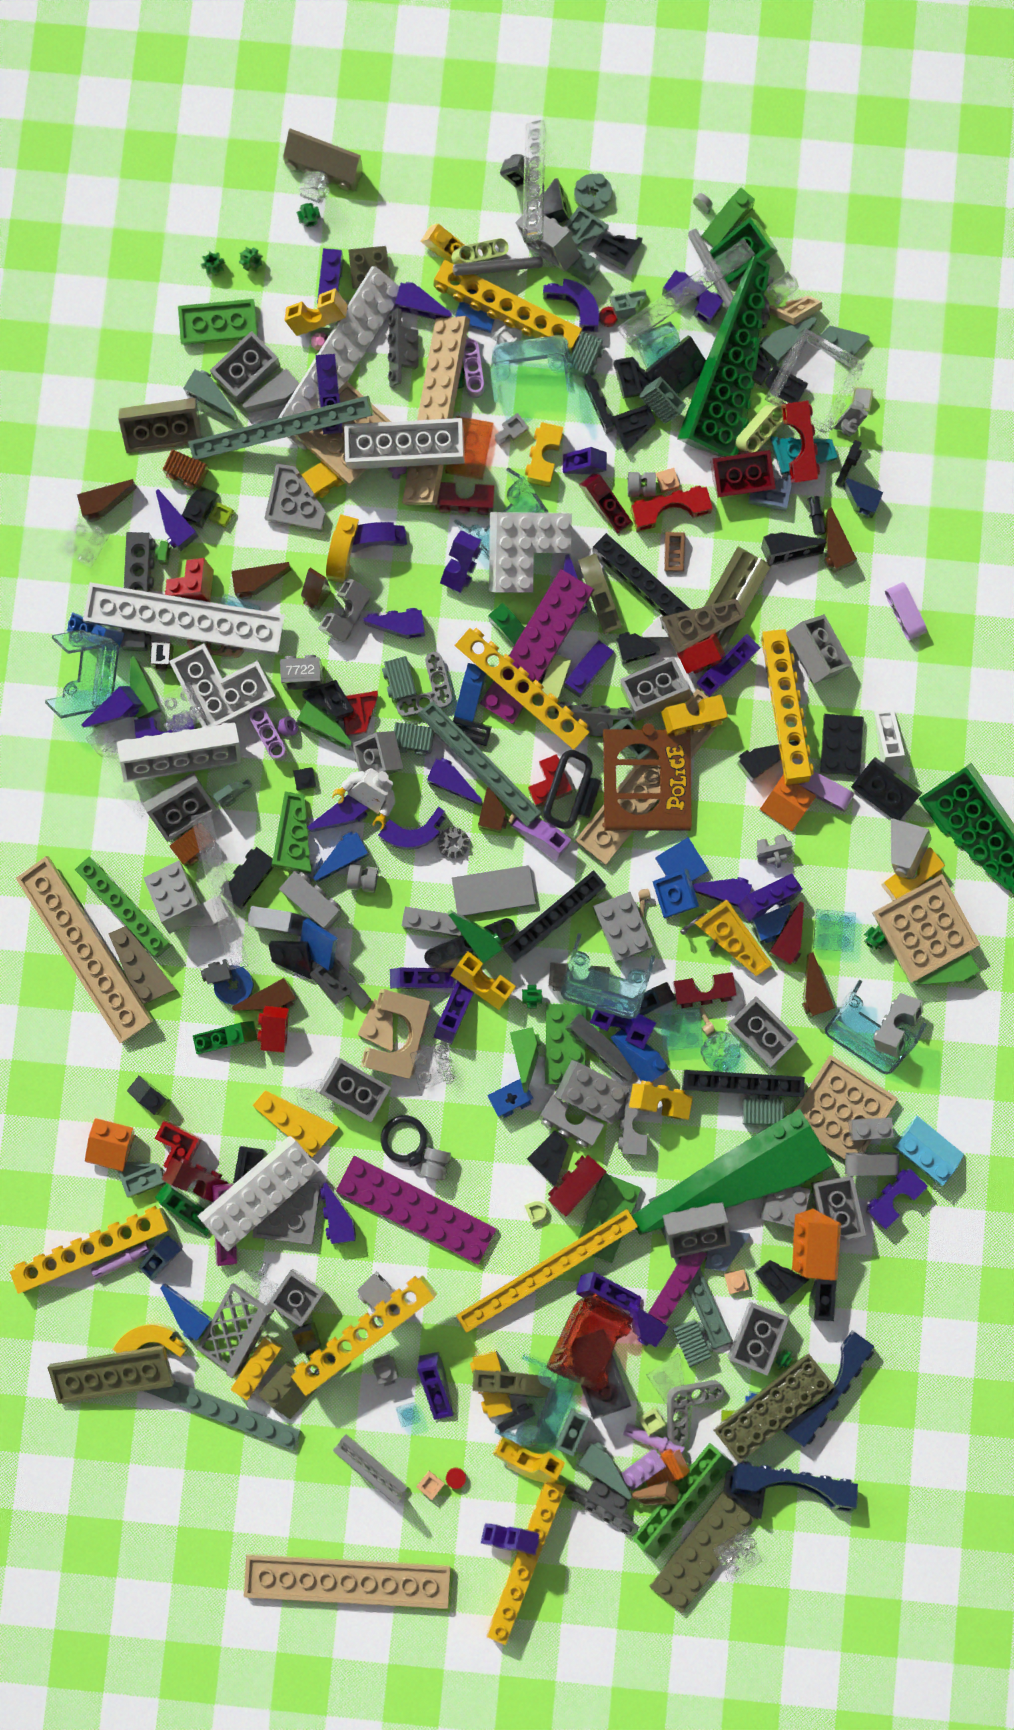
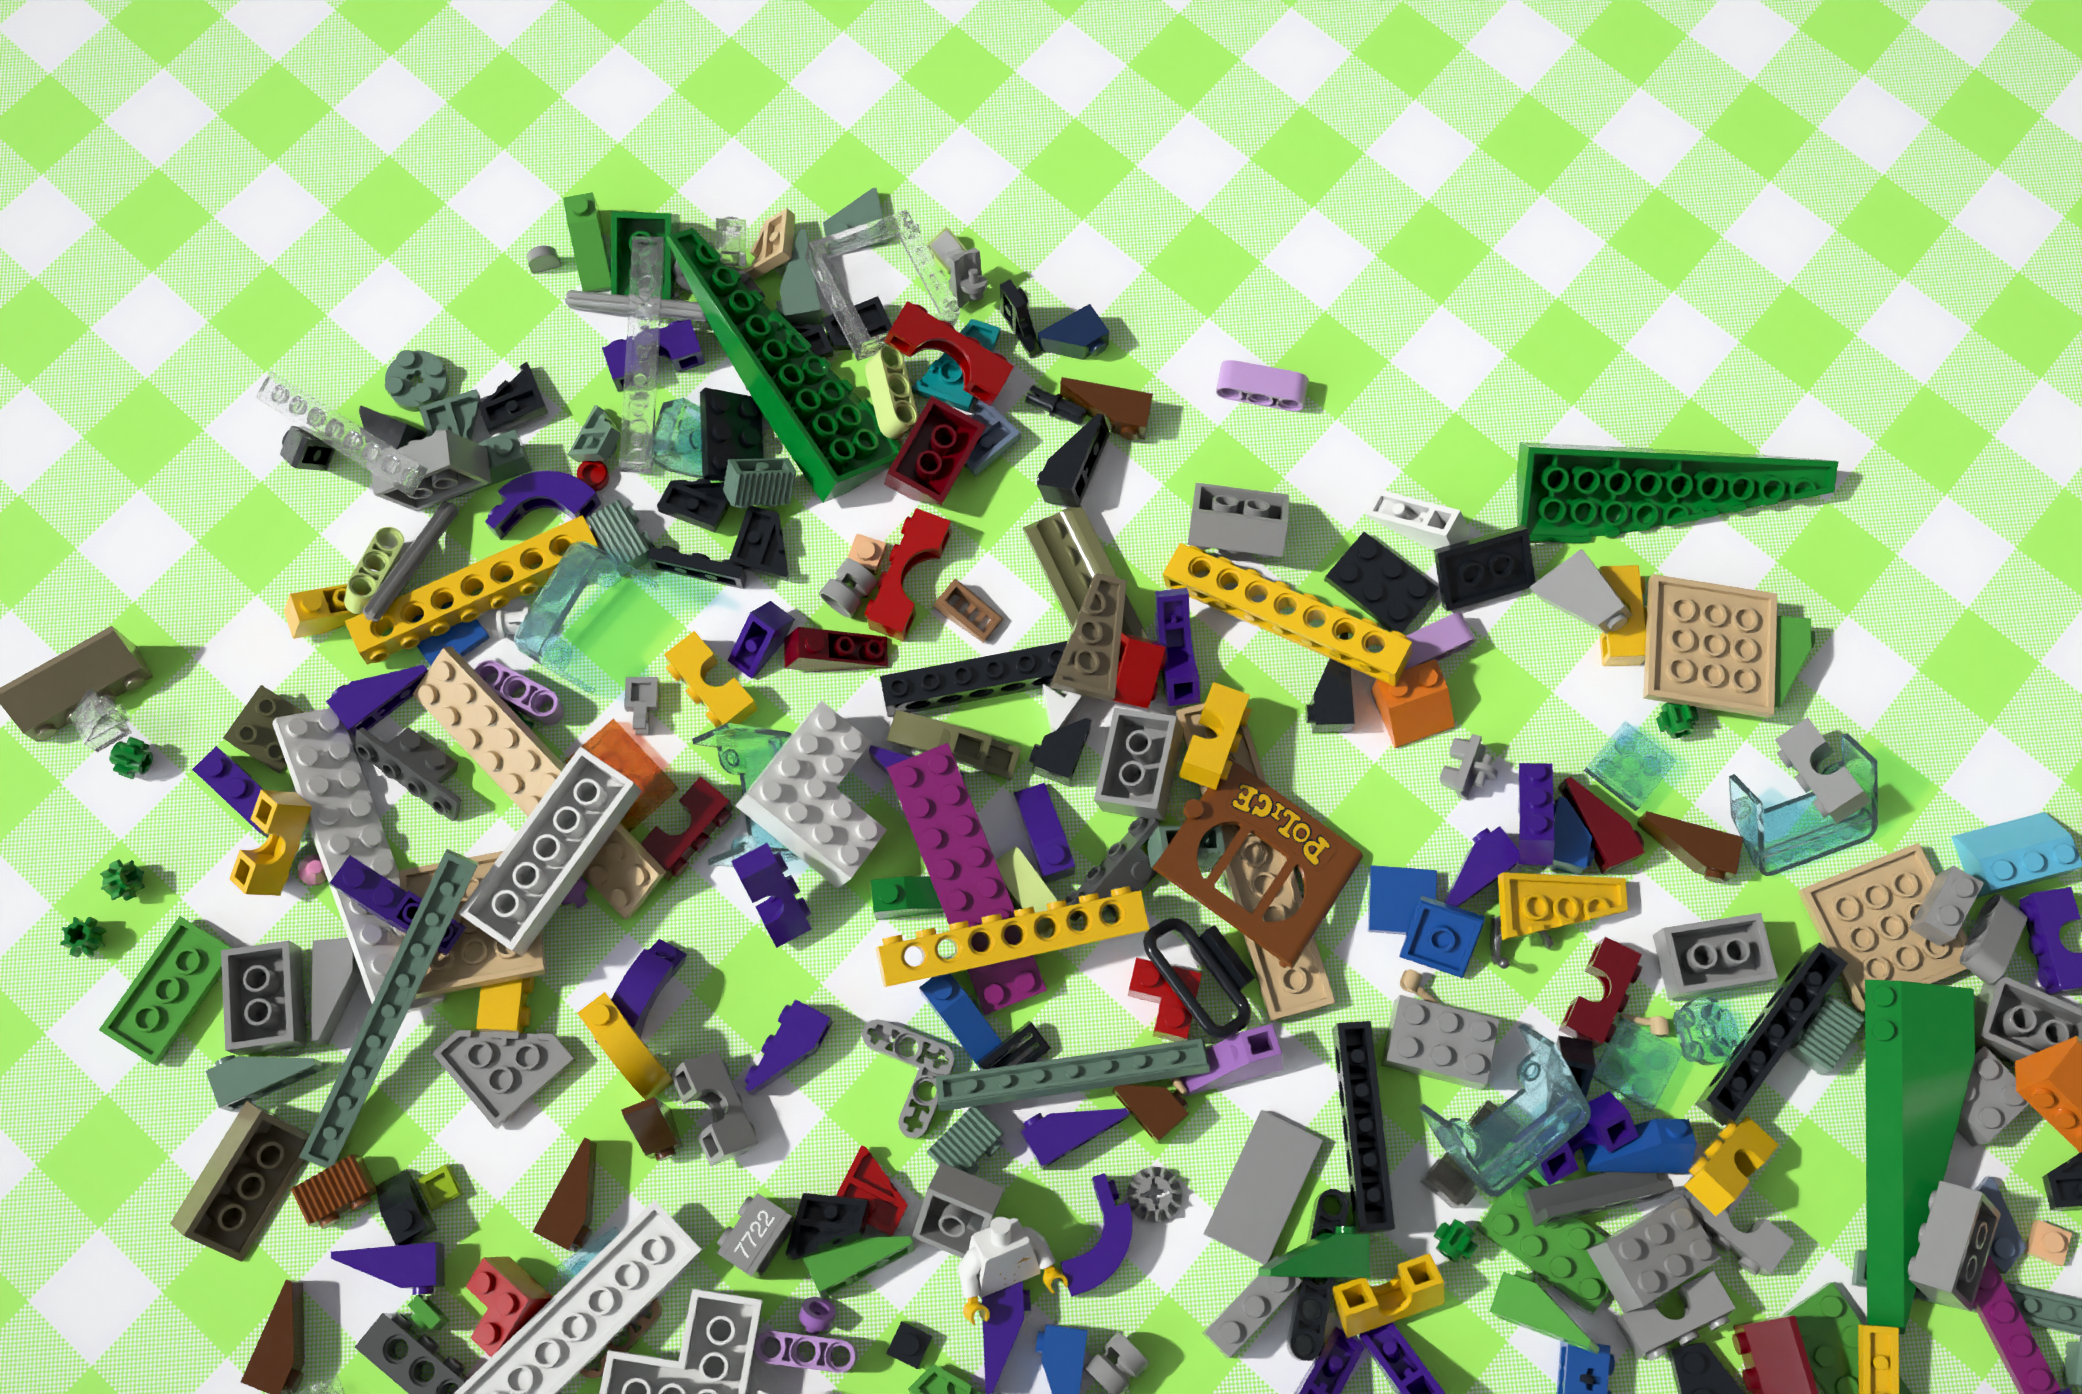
camera: 60 degrees left, 10 degrees down
(399, 678) = (868, 1101): sand green brick -> none

